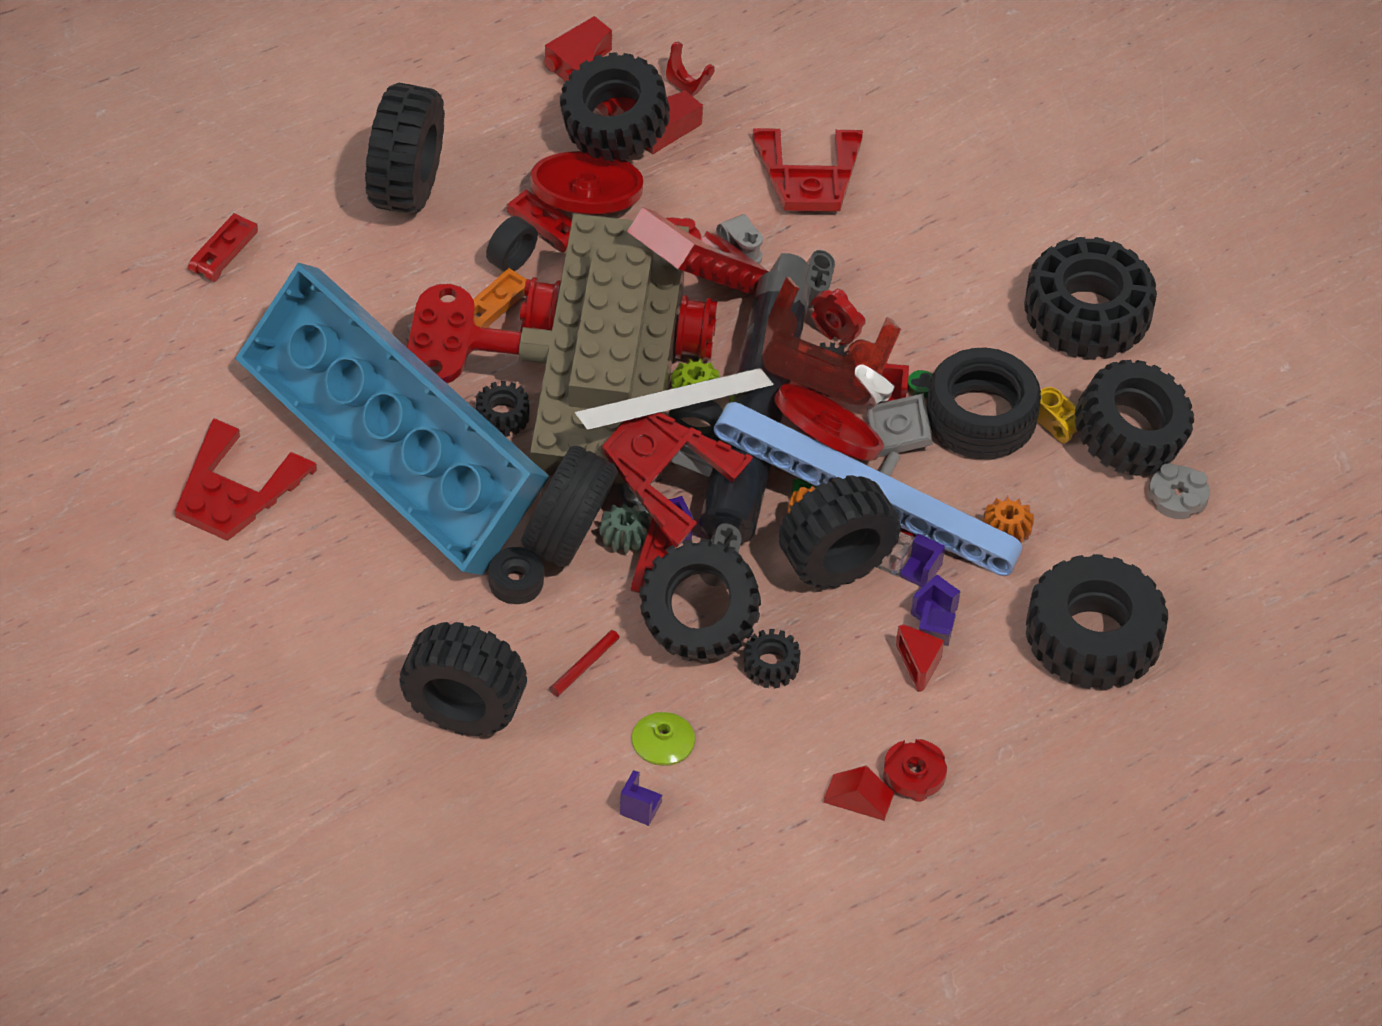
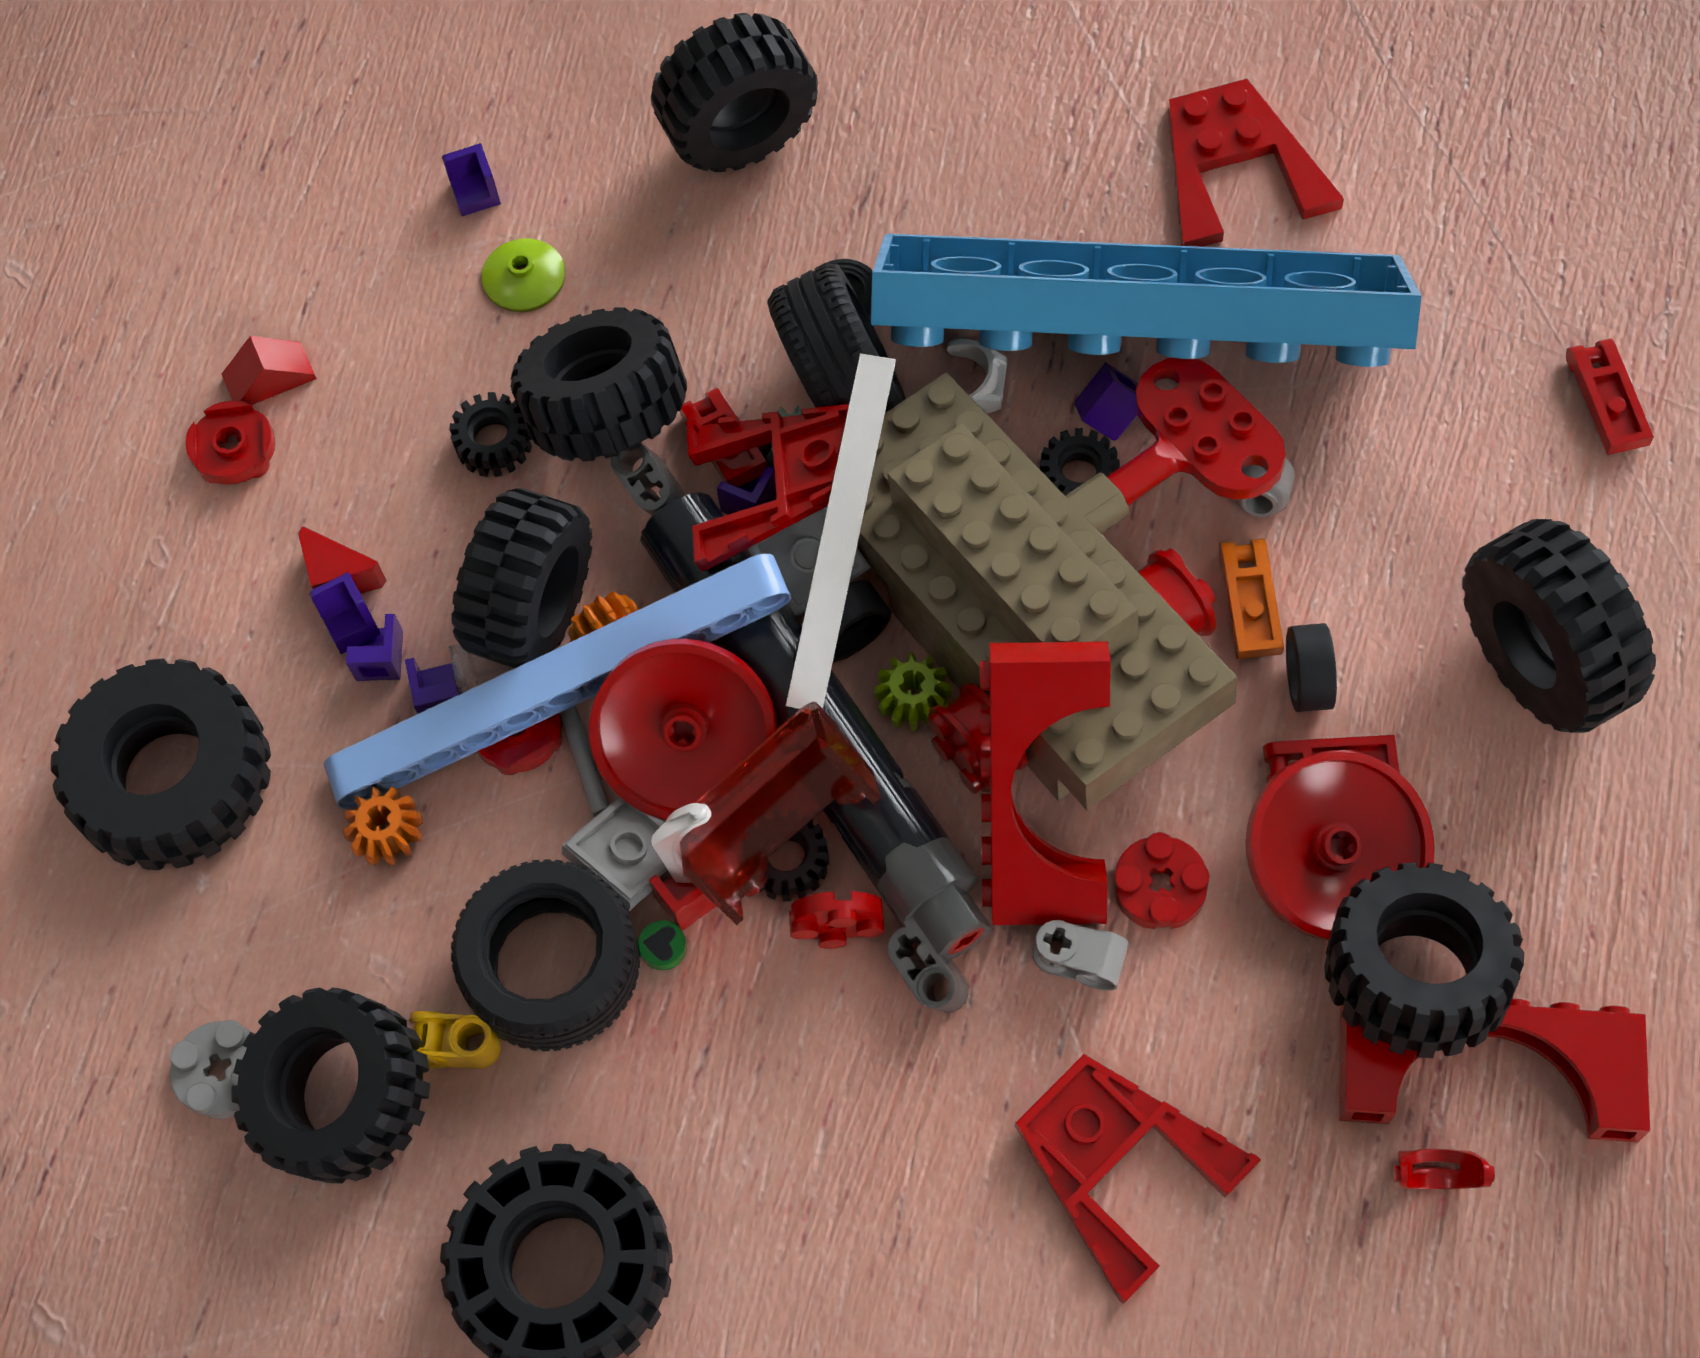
camera: 145 degrees right, 15 degrees up
(584, 663) = (678, 278): red bar -> none

